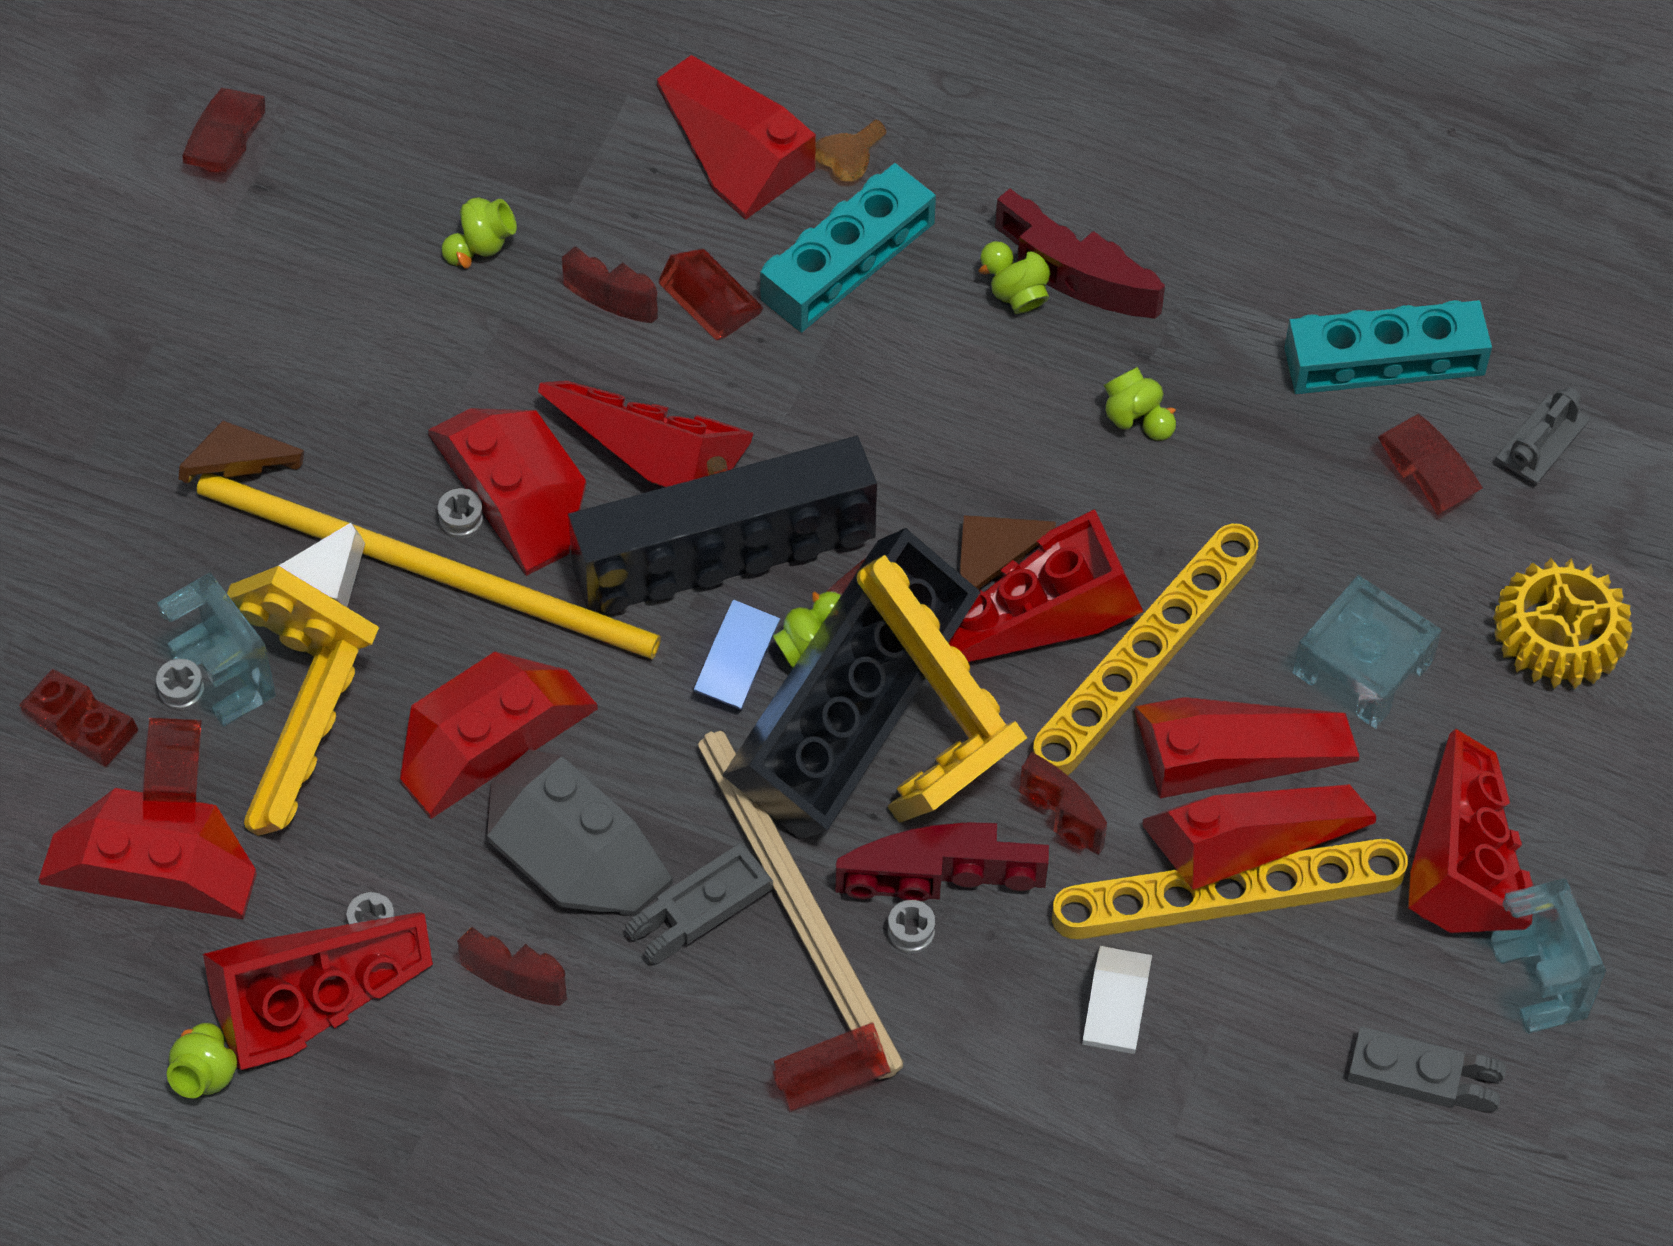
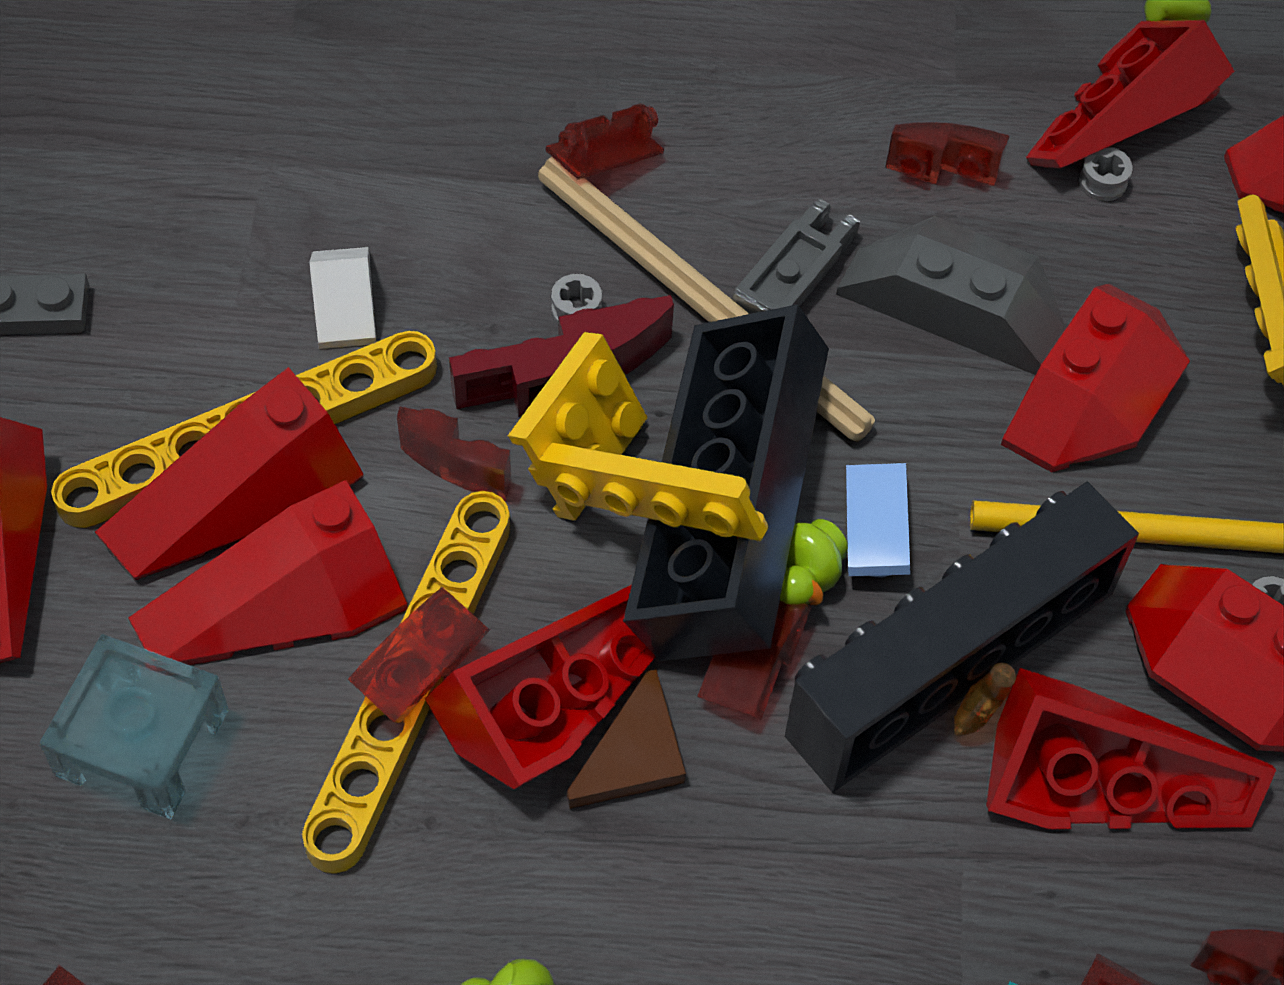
camera: 160 degrees right, 0 degrees up
(1135, 626) = (418, 654): none -> clear red slope

